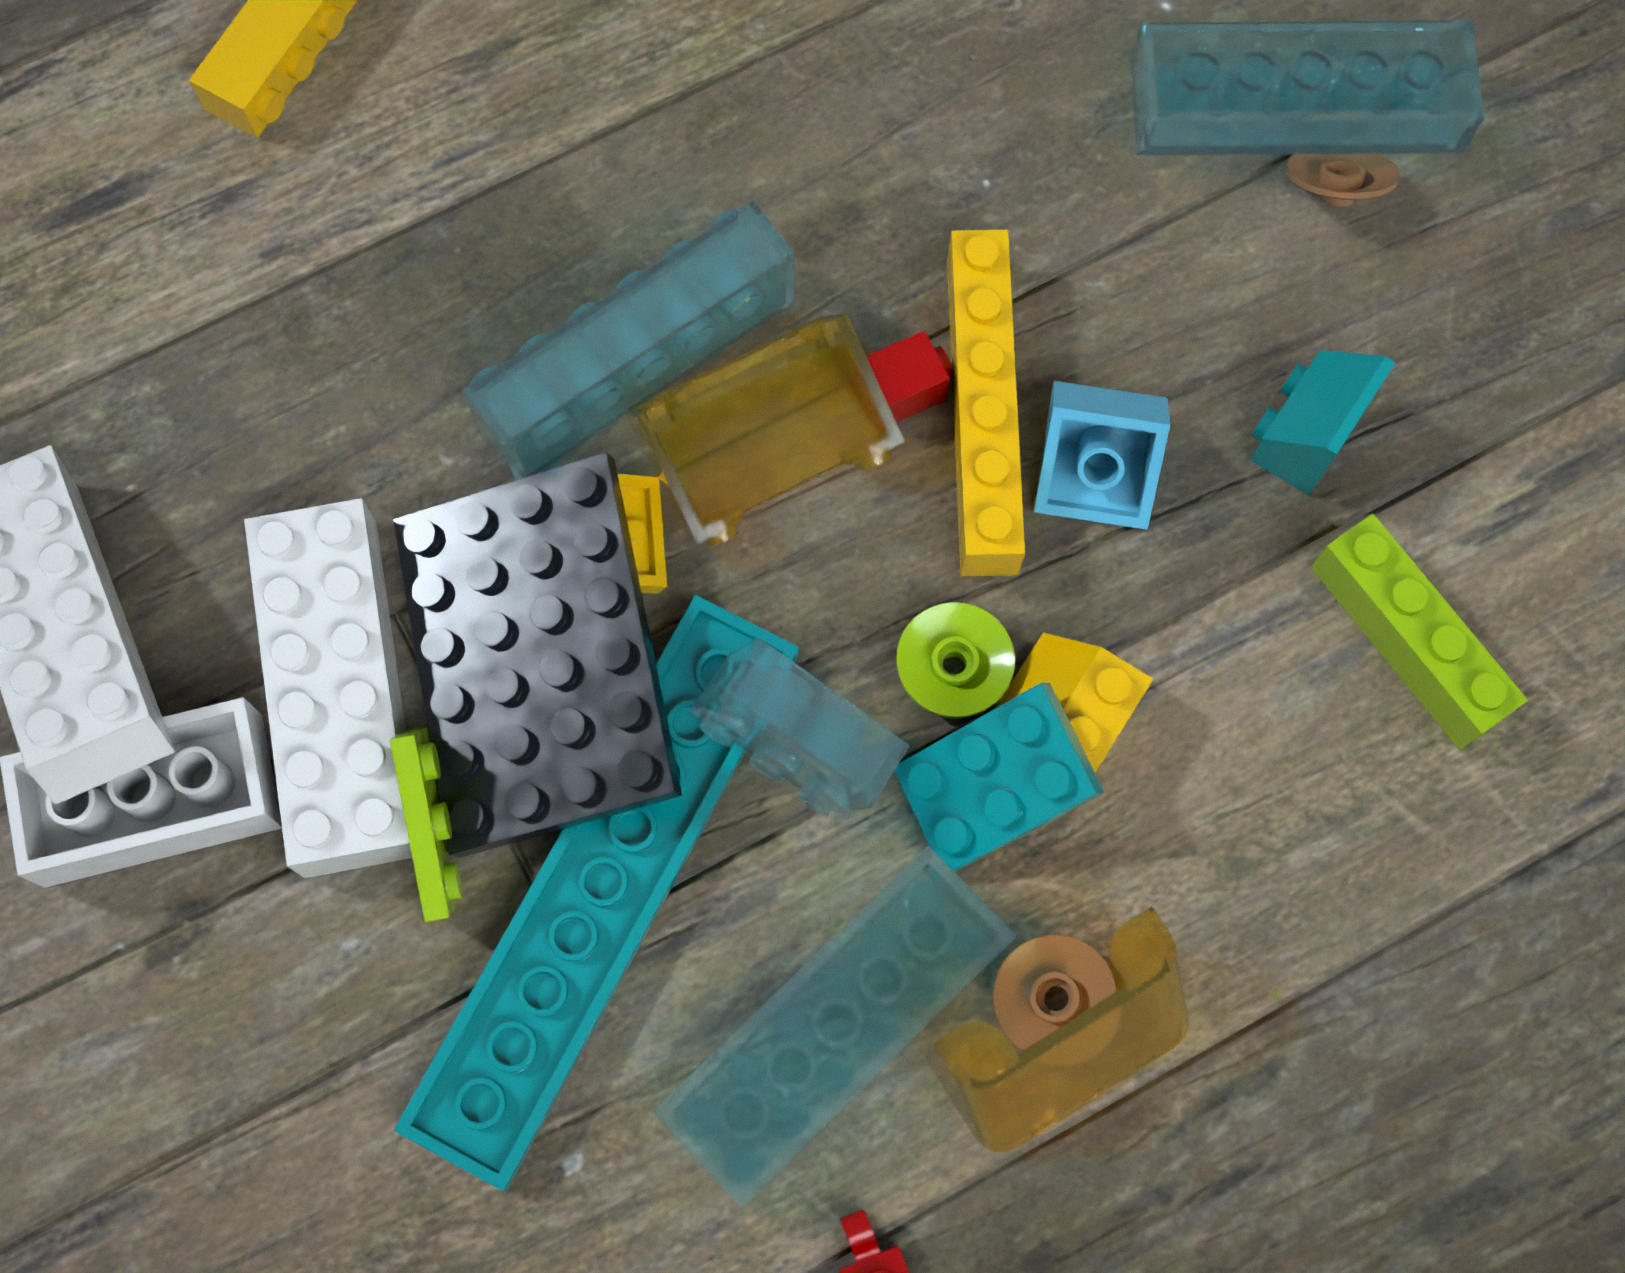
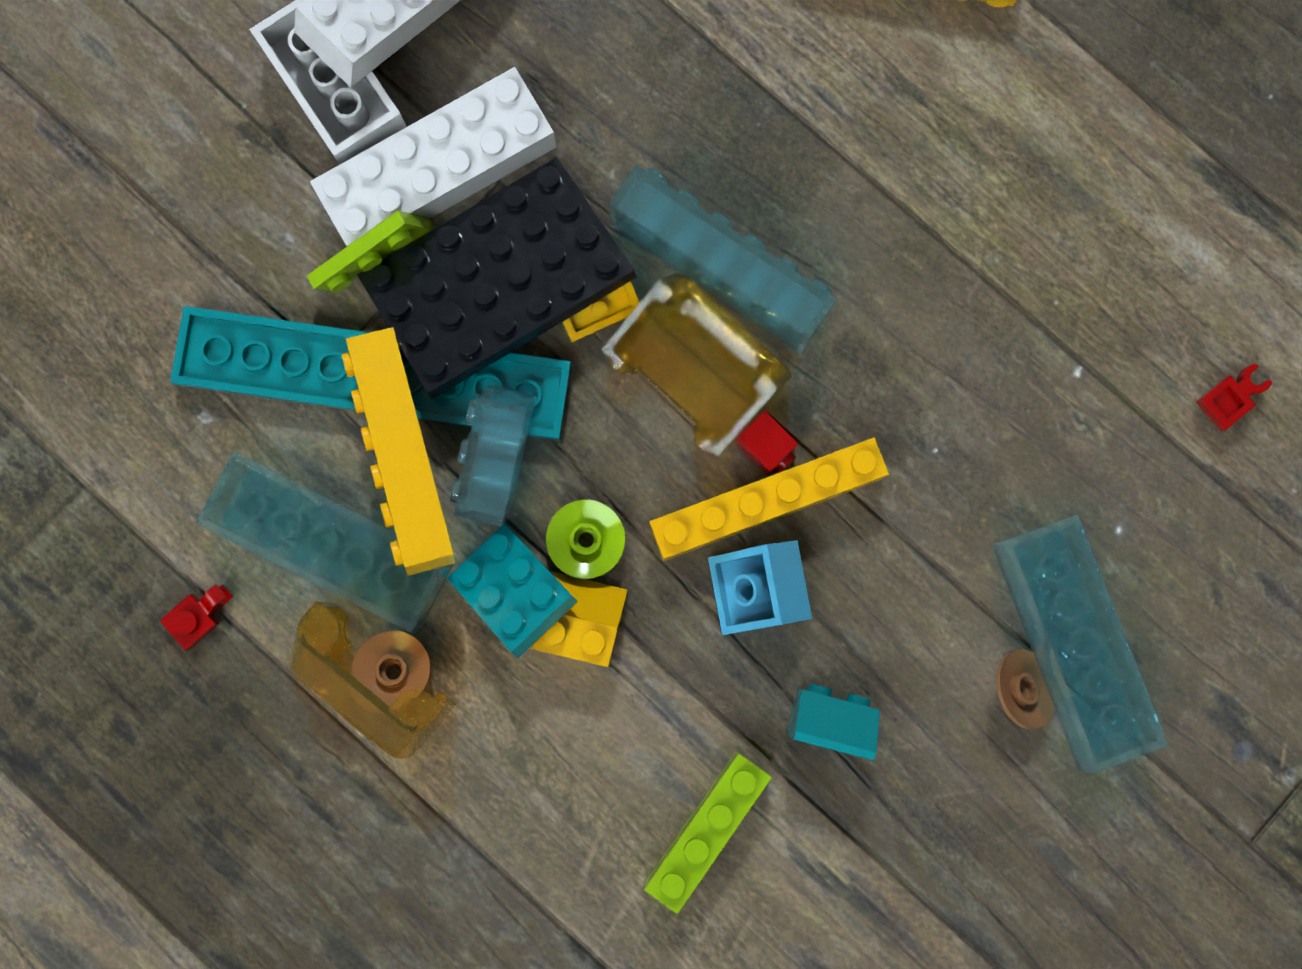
camera: 70 degrees right, 10 degrees up
(745, 861) = (400, 452): none -> yellow brick

